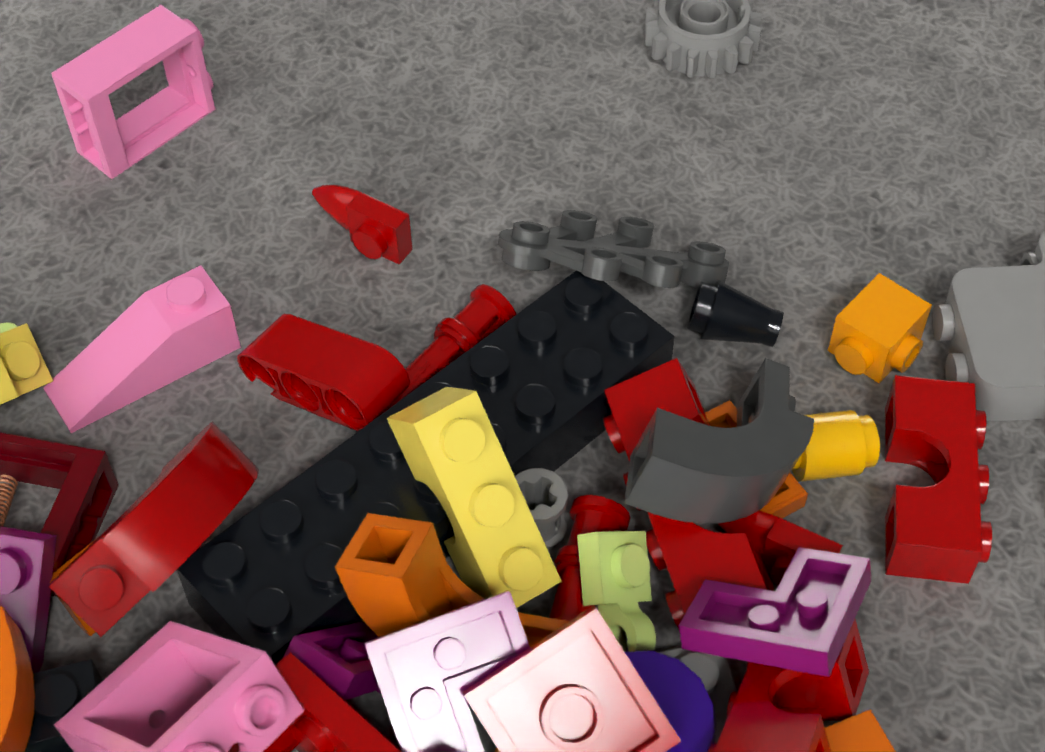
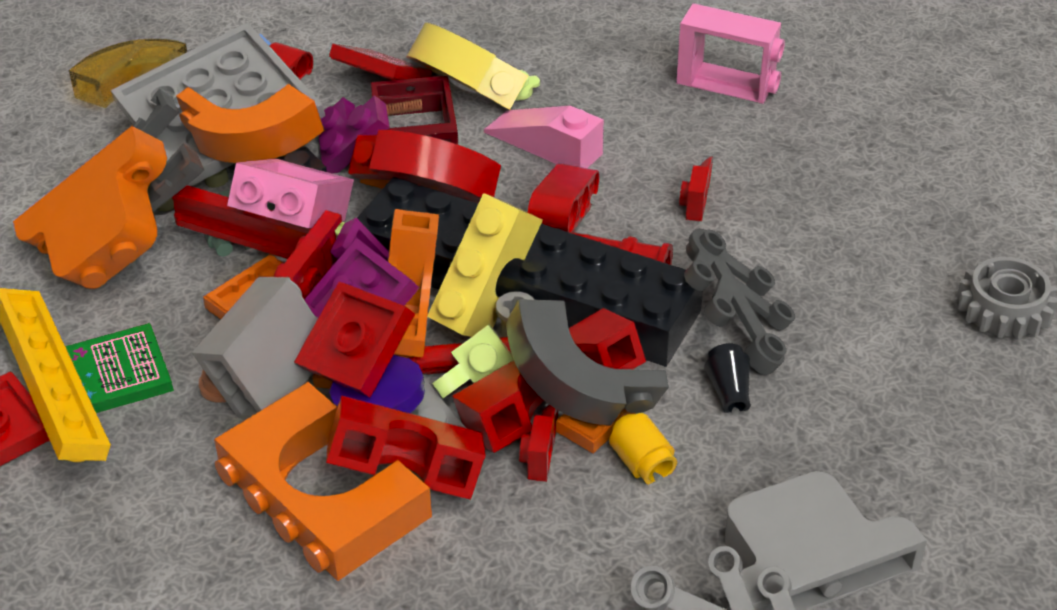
camera: 70 degrees right, 10 degrees down
(785, 628) = (450, 414): magenta plate -> none
(879, 330) = (759, 452): light orange brick -> none
(937, 527) = (604, 517): red arch -> none

